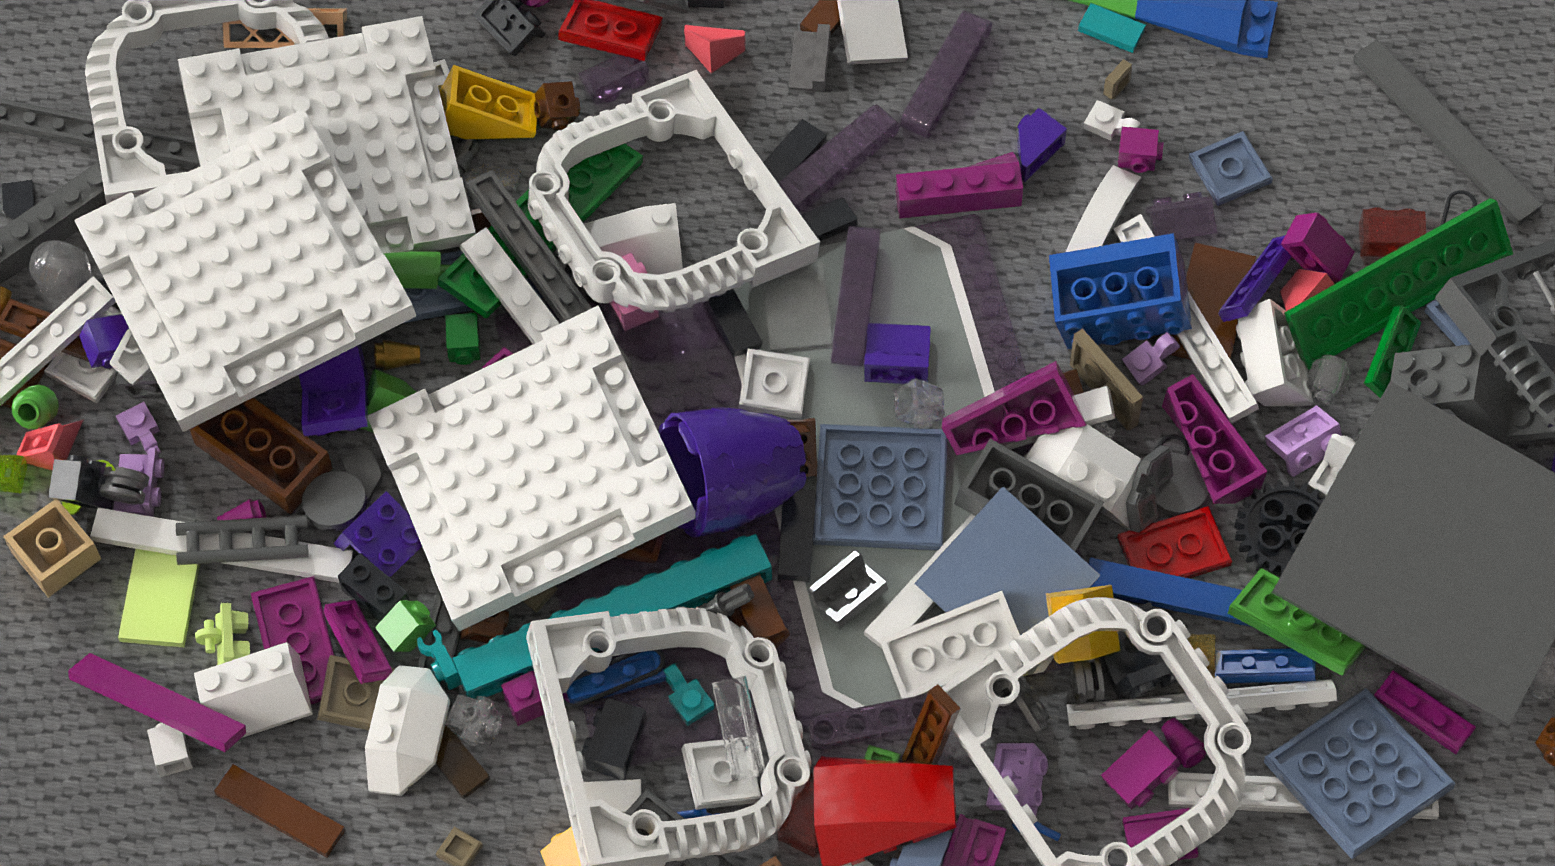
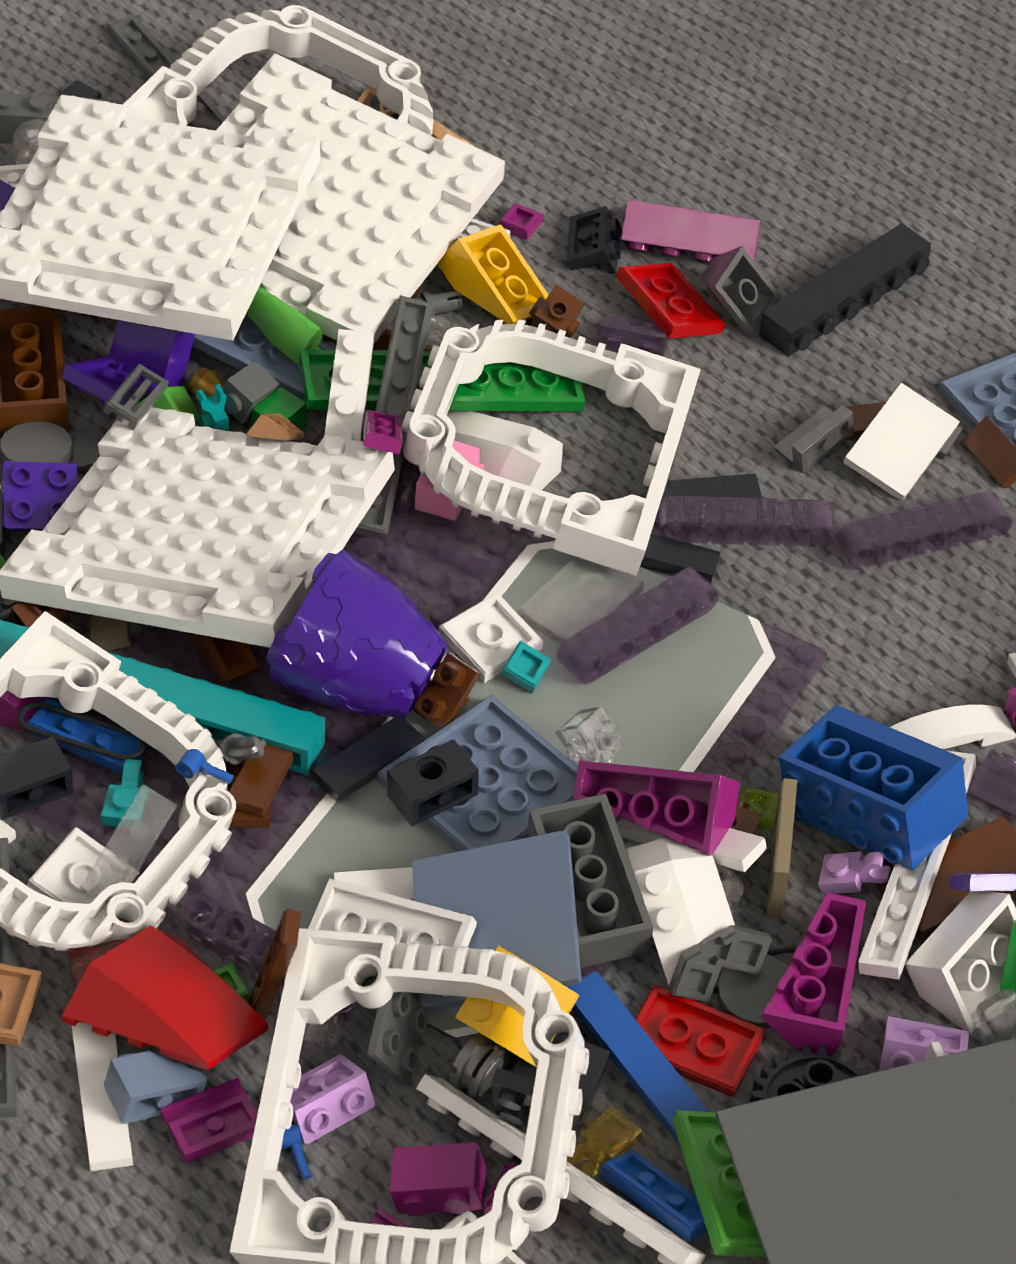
camera: 40 degrees right, 15 degrees down
(367, 410) = (125, 412): none -> dark grey tile
(422, 375) = (213, 409): none -> teal plate
(429, 338) = (247, 390): none -> dark grey brick
(442, 44) = (521, 221): none -> magenta tile
(492, 354) = (275, 427): none -> medium nougat slope
(578, 299) = (382, 431): none -> magenta tile
(714, 45) = (745, 371): coral slope -> none
(725, 639) = (195, 761): none -> blue hand
(733, 323) = (512, 565): black tile -> none
(820, 386) = (525, 666): none -> teal tile
(846, 590) = (355, 826): dark grey bracket -> none
(865, 500) = (432, 782): none -> black brick
(896, 353) = (622, 689): dark purple bracket -> none
(977, 187) = (831, 618): magenta wedge -> none
(1038, 141) = (944, 636): dark purple slope -> none
(1048, 354) = (762, 803): none -> clear neon green tile

